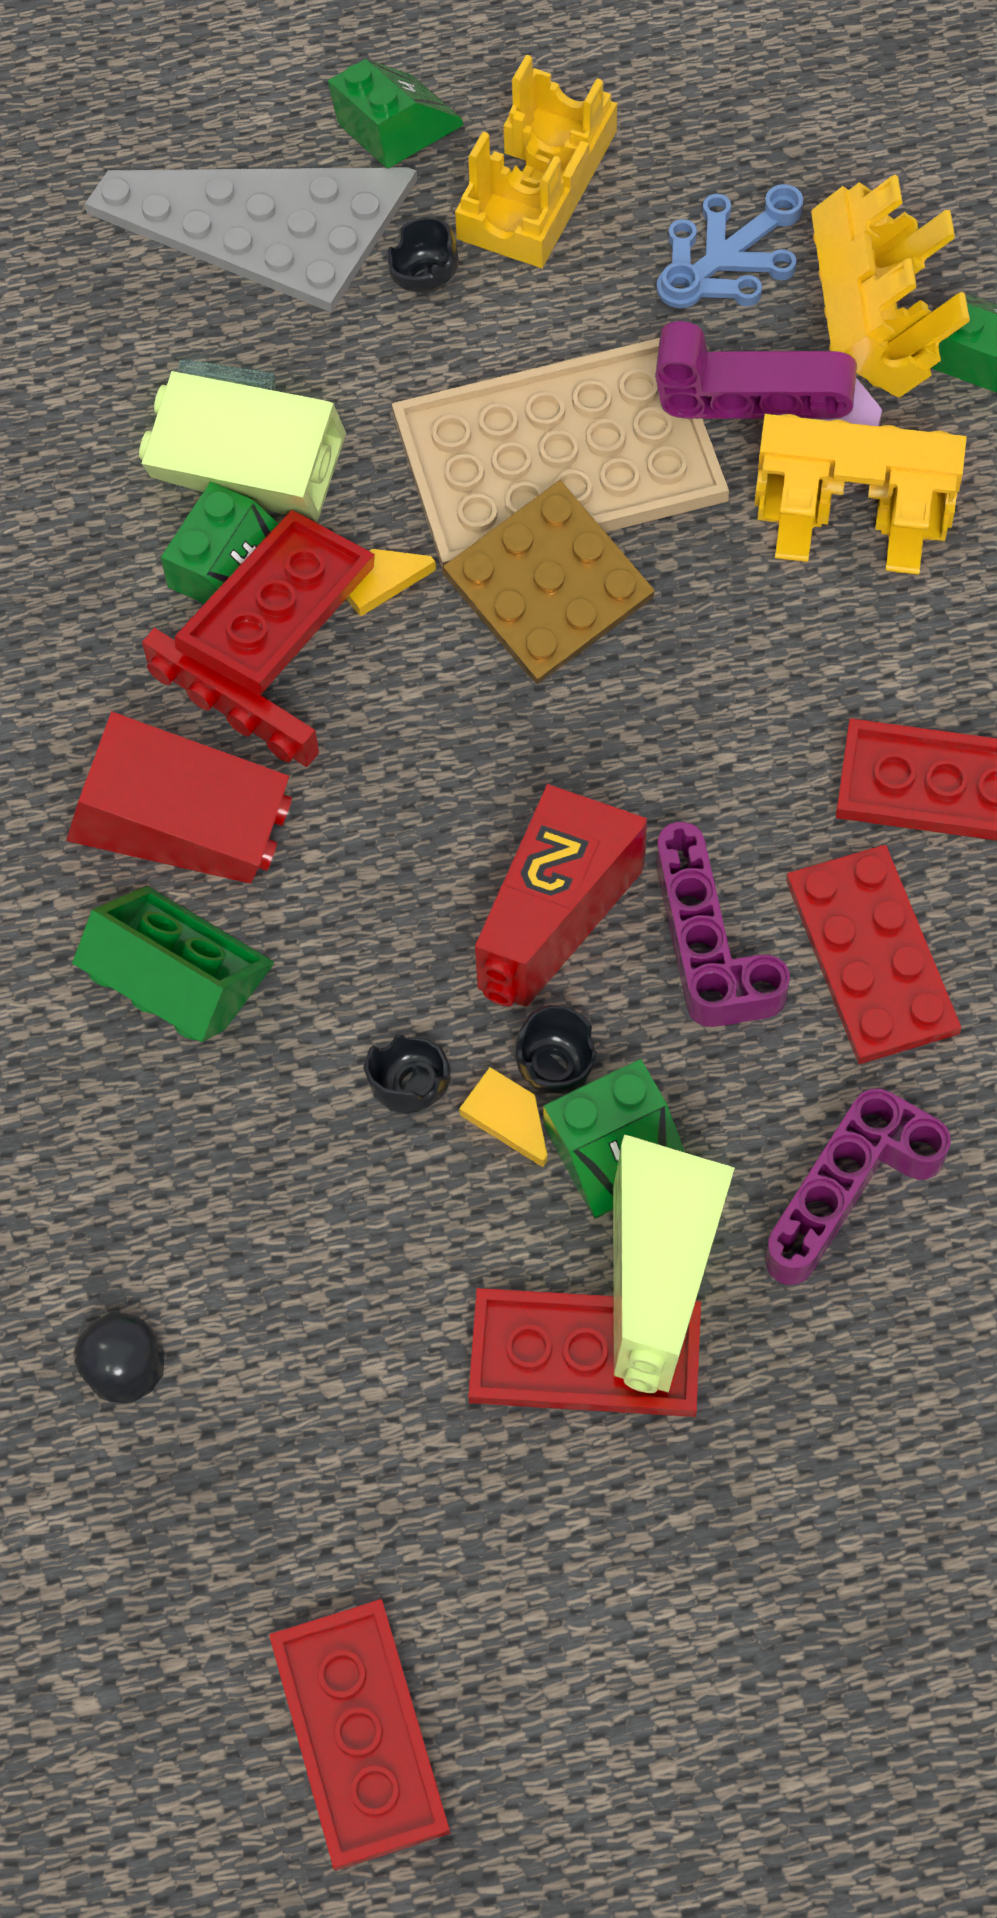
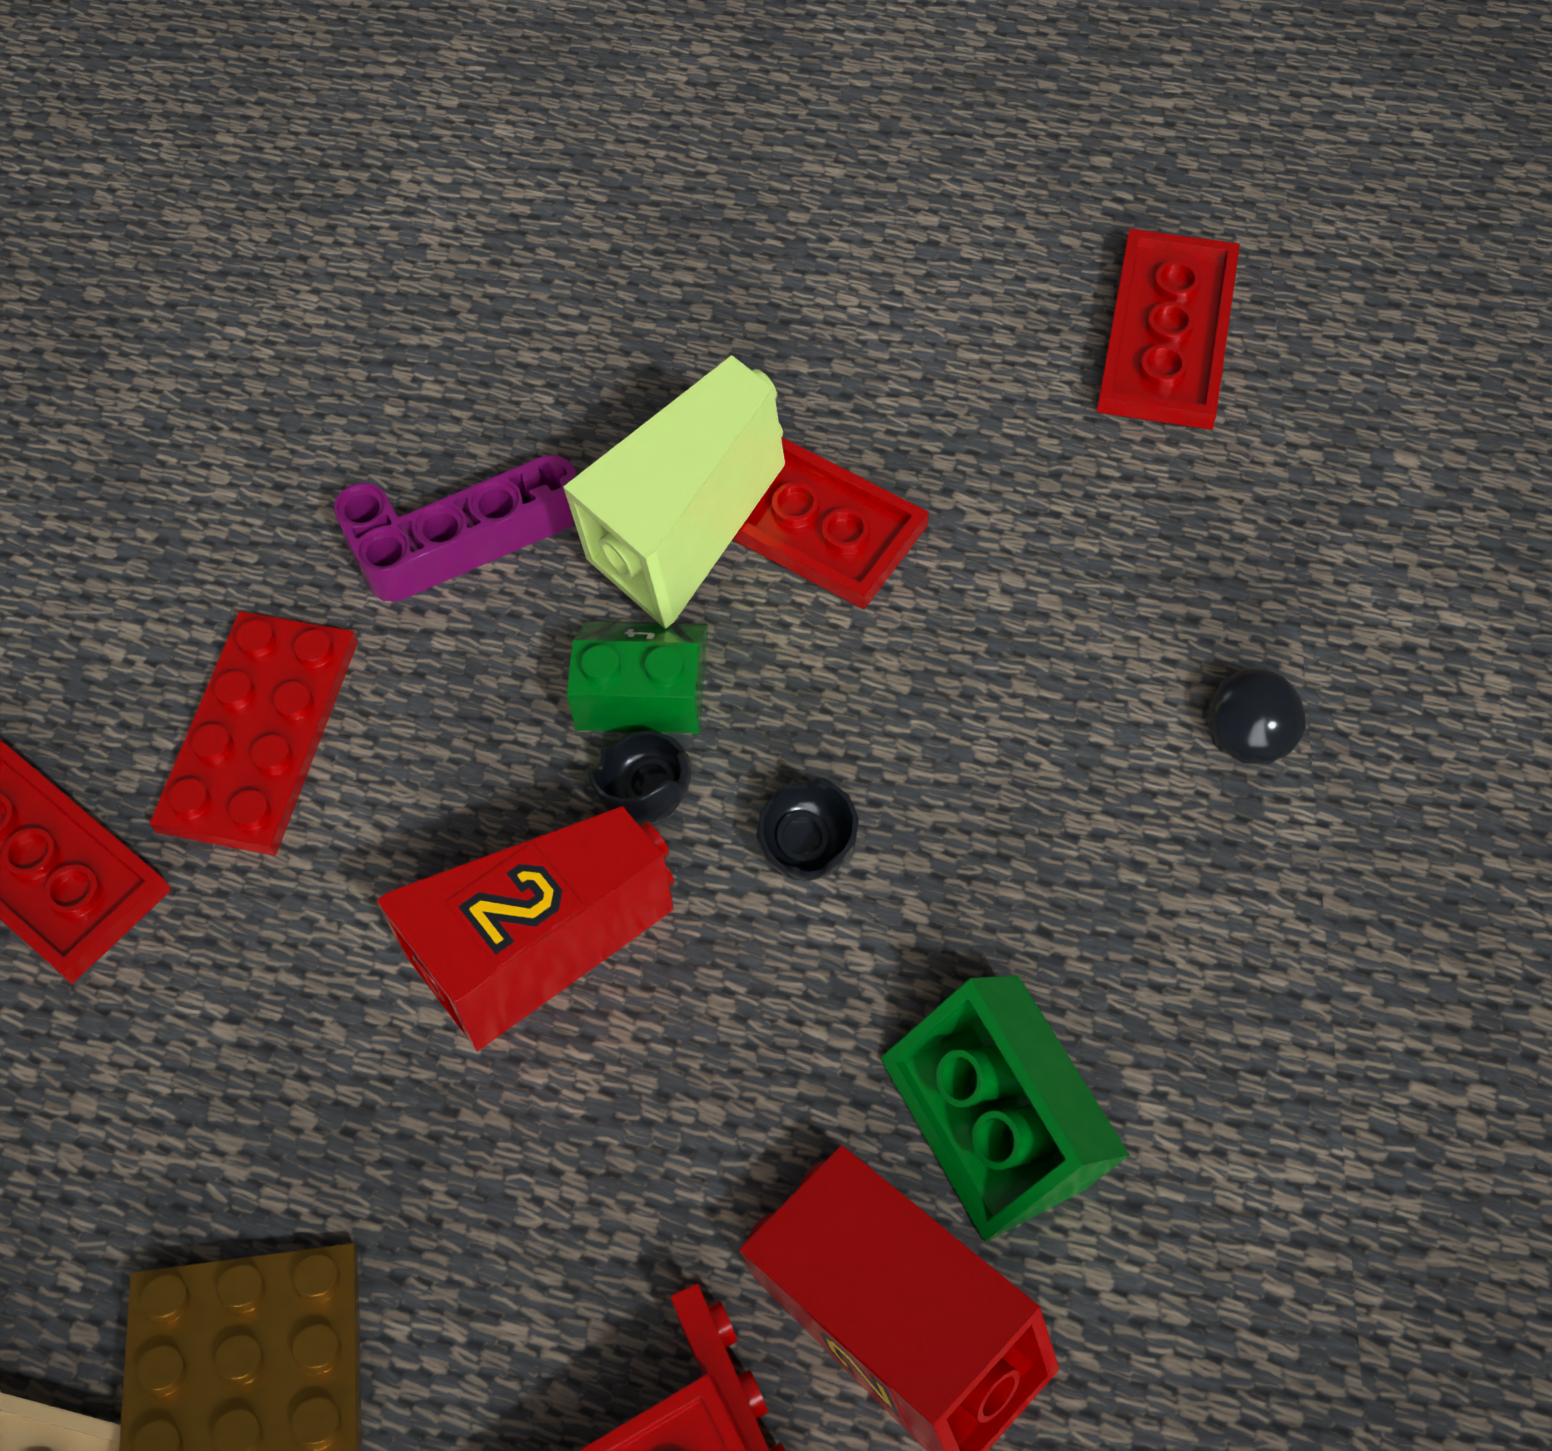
camera: 150 degrees left, 5 degrees down
(507, 1114) = (728, 757): yellow tile -> none
(705, 925) = (390, 832): magenta beam -> none

